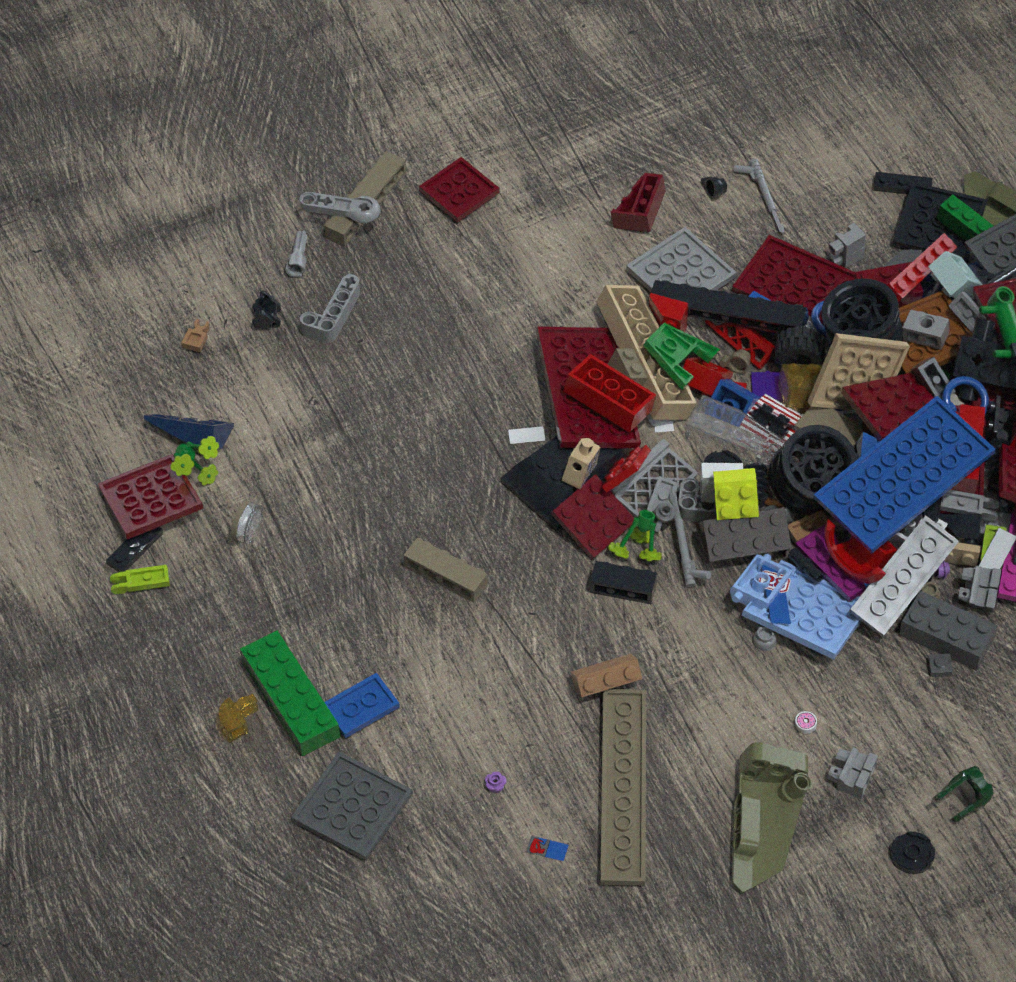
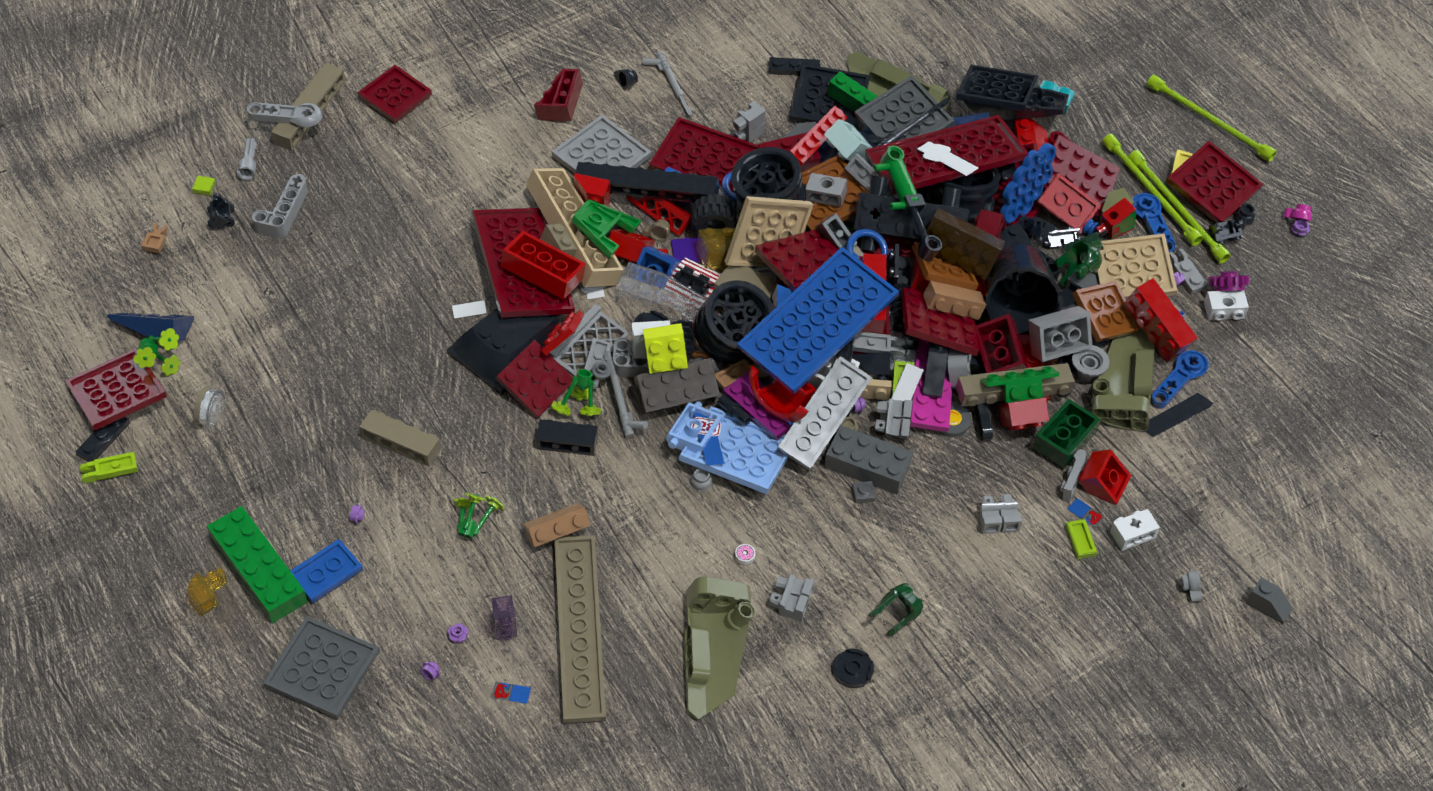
camera: 10 degrees left, 0 degrees up
(249, 280) = (203, 185): none -> lime tile
(396, 647) = (357, 513): none -> medium lavender plate
(464, 818) = (430, 670): none -> medium lavender plate
(511, 670) = (467, 526): none -> plant
(545, 769) = (504, 617): none -> clear purple brick
(586, 455) = (522, 321): tan torso -> none

